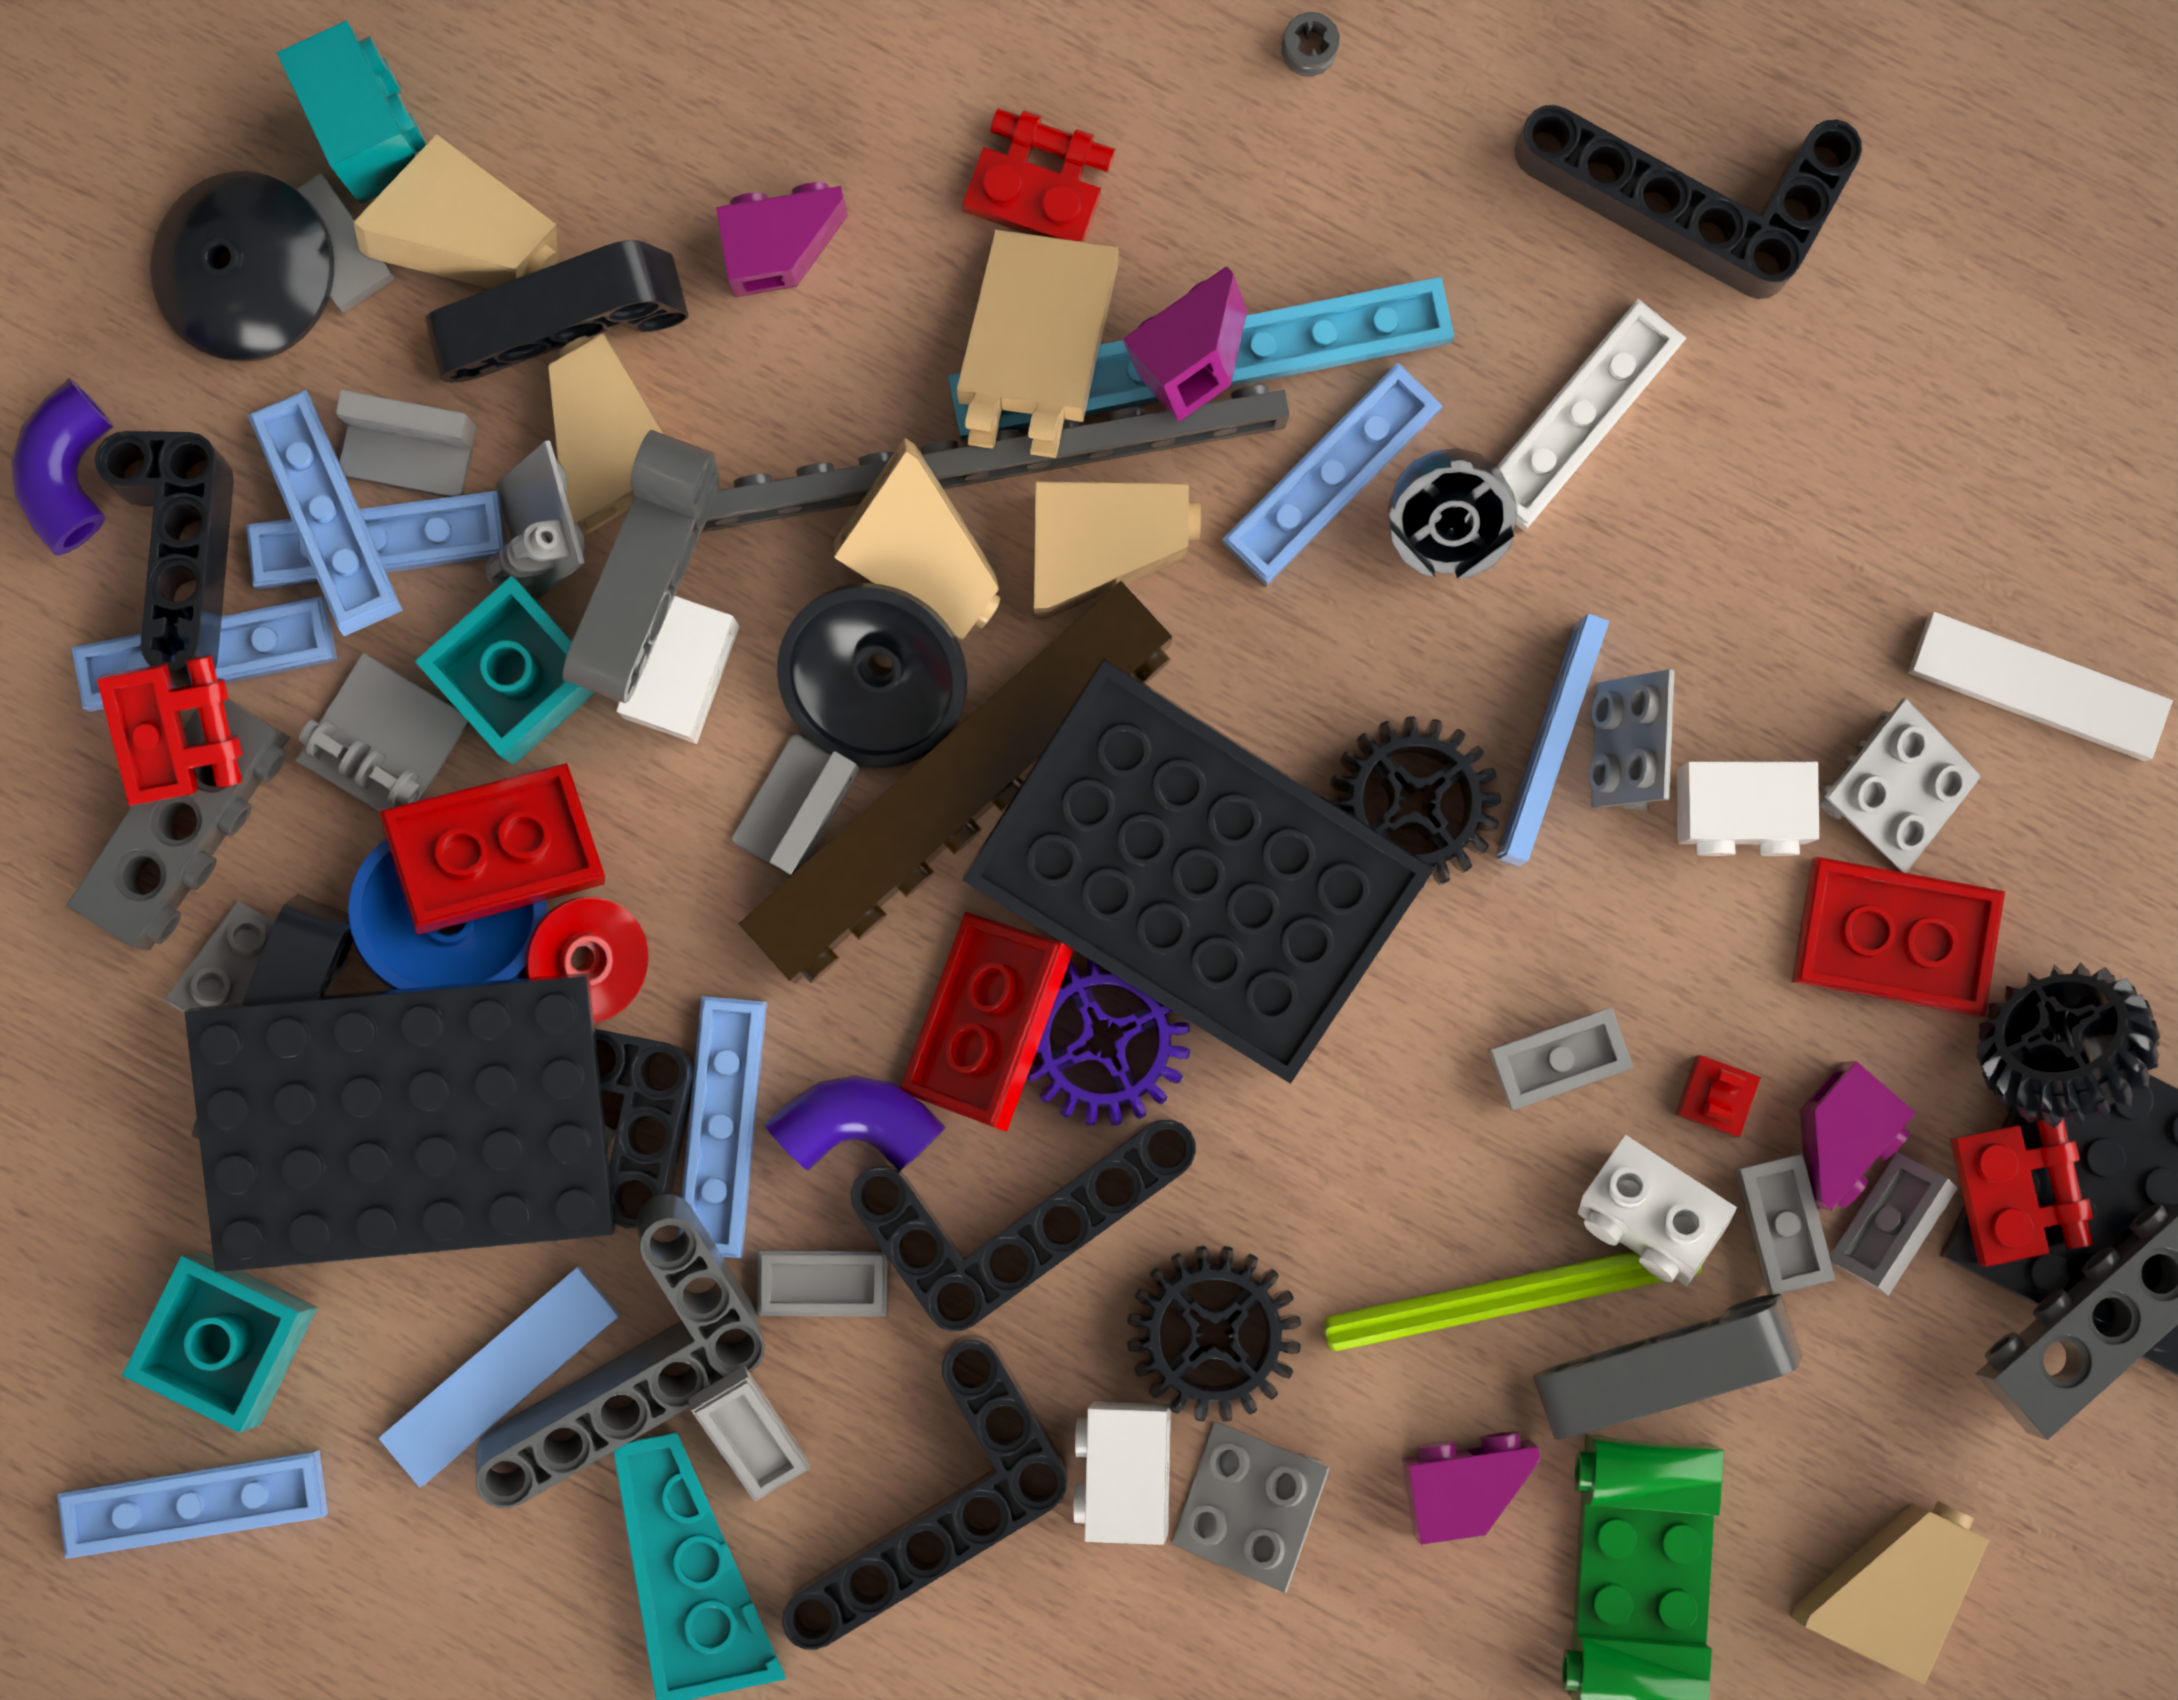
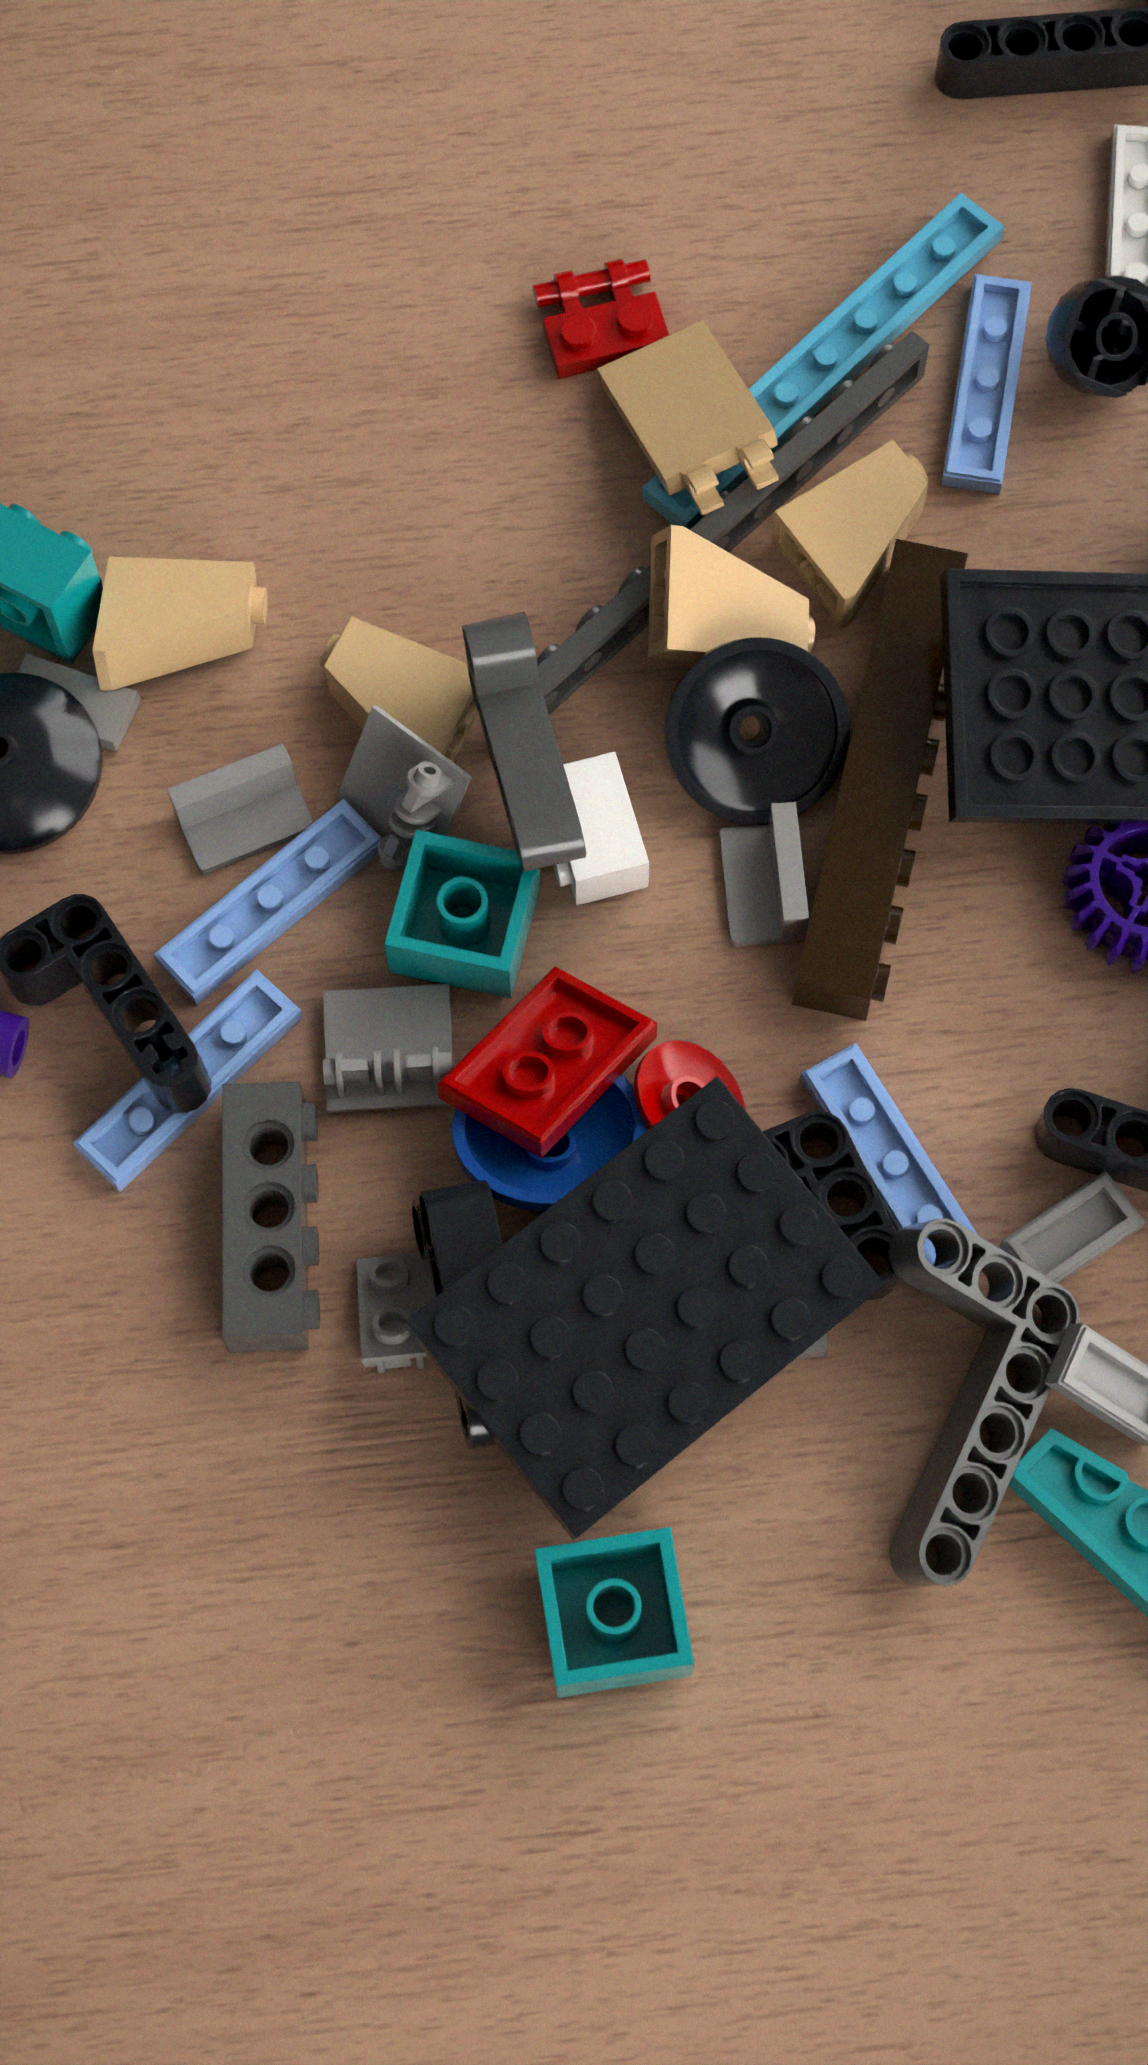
camera: 30 degrees left, 15 degrees down
(150, 733) = (206, 1137): red plate -> none
(192, 1504) = (681, 1787): light blue tile -> none
(325, 513) = (217, 898): light blue tile -> none
(499, 1376) = (865, 1494): light blue tile -> none
(547, 309) = (292, 628): black beam -> none
(778, 239) = (429, 476): magenta slope -> none
(854, 1110) = (991, 1076): dark purple cylinder -> none
(986, 1020) = (1047, 932): red tile -> none
(1191, 345) = (818, 342): magenta slope -> none
(1314, 64) = (729, 121): dark grey bush -> none

